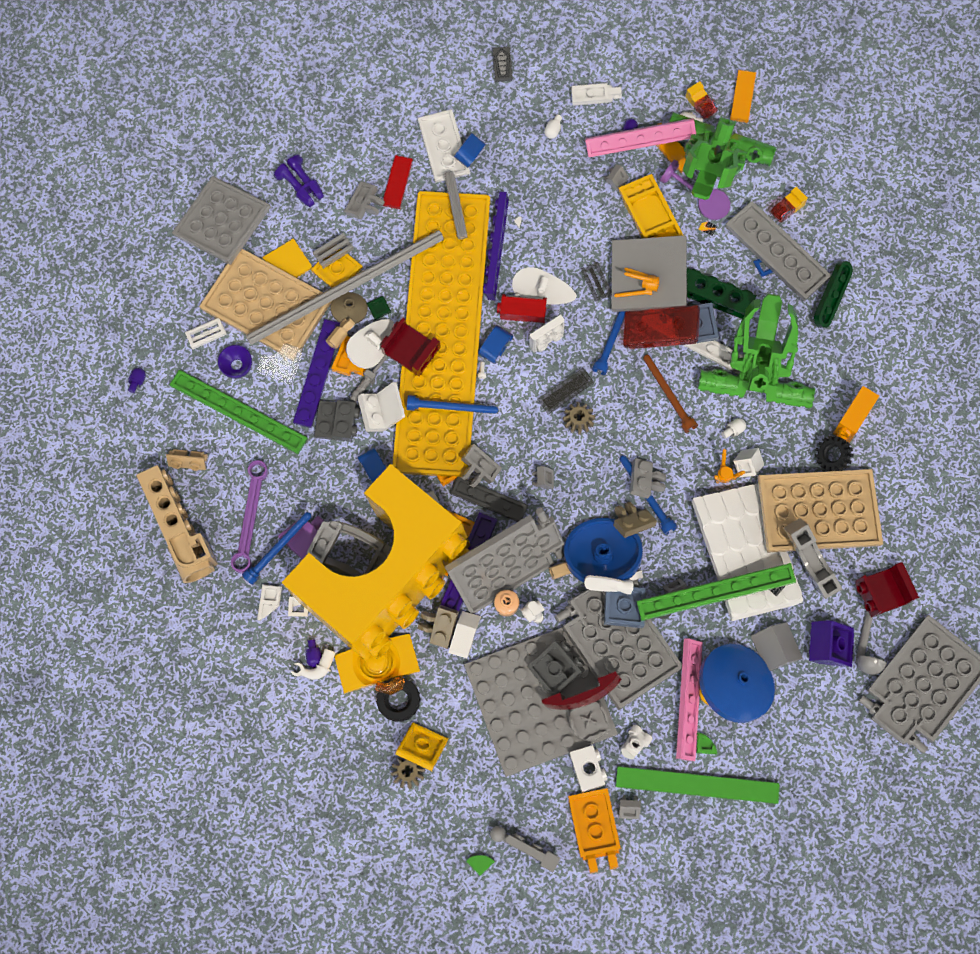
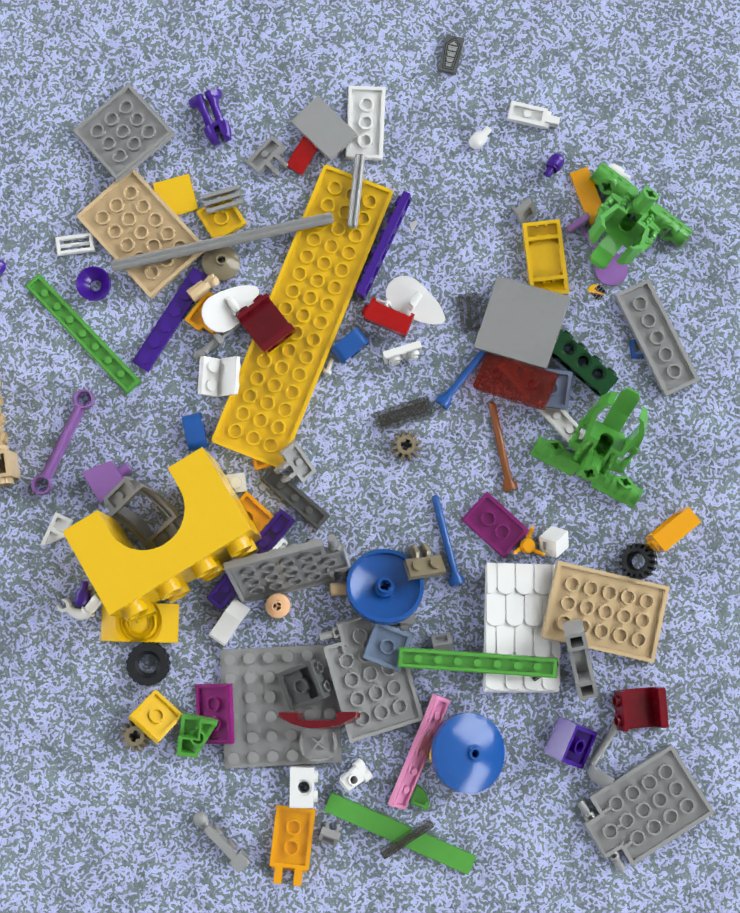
camera: 15 degrees right, 10 degrees up
(179, 459) = (12, 363): tan hinge -> none
(251, 574) = (48, 499): blue piece -> none
(281, 365) = (137, 301): clear tile -> none
(337, 420) = (174, 373): dark grey plate -> none
(378, 307) = (249, 271): dark green tile -> none
(392, 687) = (143, 653): clear orange arm -> none
(407, 160) = (324, 128): none -> light grey tile
(414, 403) = (252, 382): blue piece -> none
(443, 626) = (211, 609): dark tan hinge -> none
(465, 751) = (194, 733): none -> bright green slope
(469, 150) = (388, 137): blue beam -> none
(478, 726) = (217, 703): none -> magenta tile
(480, 863) = (176, 840): bright green tile -> none
(533, 611) = (299, 622): white plate -> none
(545, 477) = (354, 494): light grey tile -> none
(608, 584) = (392, 629): white piece -> none
(640, 137) = (561, 178): bright pink tile -> none
(642, 479) = (446, 524): light grey hinge -> none
(649, 282) = (518, 333): light orange plant -> none
(688, 465) = (495, 525): none -> magenta tile
(701, 101) = (635, 157): leg -> none
(706, 784) = (407, 838): none -> clear smoke tile
(735, 427) = (552, 503): white cylinder -> none
(743, 96) = (679, 164): light orange tile -> none
(776, 646) = (519, 727): light grey slope -> none
(789, 205) = (684, 294): leg -> none
(833, 294) = (694, 399): dark green plate -> none

